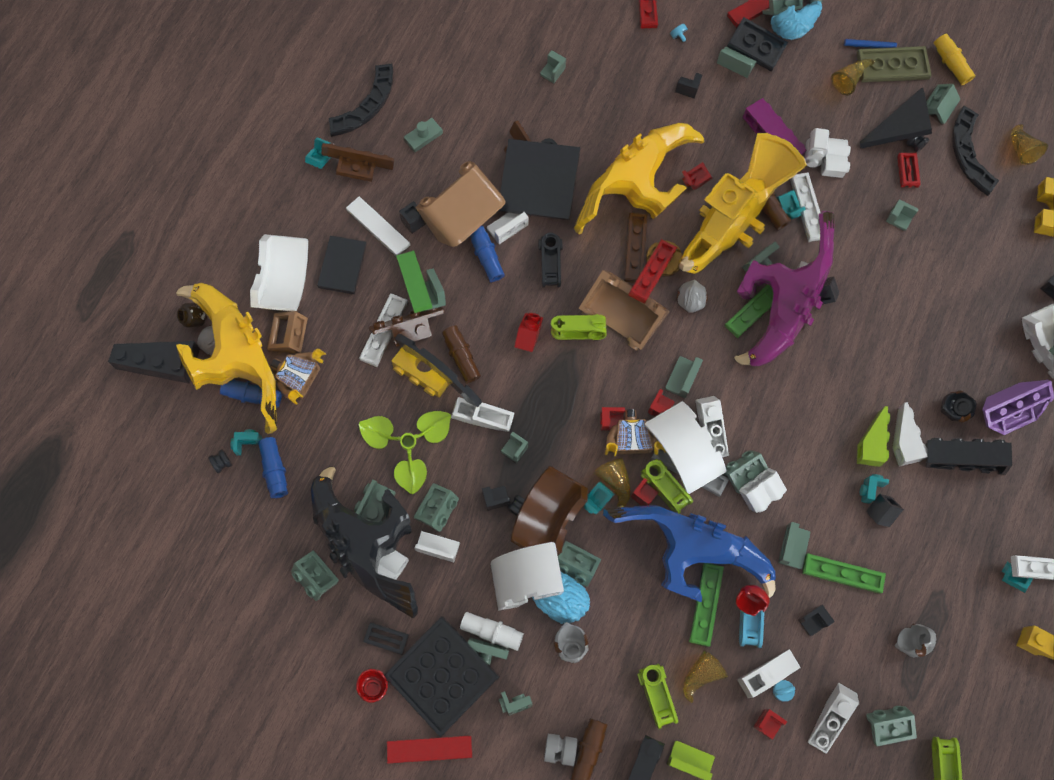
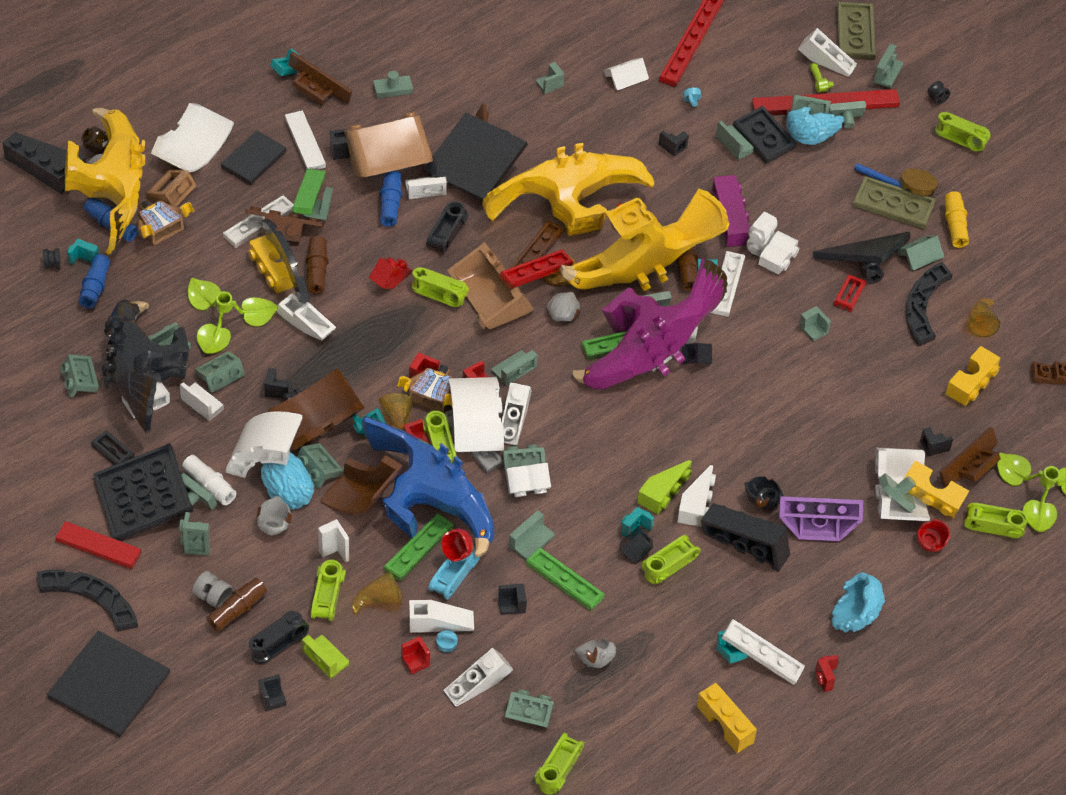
camera: 25 degrees right, 20 degrees down
(369, 106) = (356, 47): black tile -> none
(371, 685) = (78, 472): red hair -> none
(515, 447) = (321, 356): sand green panel -> none
(612, 32) = (627, 73): none -> white panel
(633, 577) = (361, 485): none -> reddish brown panel
(637, 640) = (332, 539): none -> white panel
(847, 77) = (836, 192): clear yellow hat -> none
(904, 35) = (918, 181): none -> pearl gold tile
(919, 511) = (669, 560): none -> lime piece

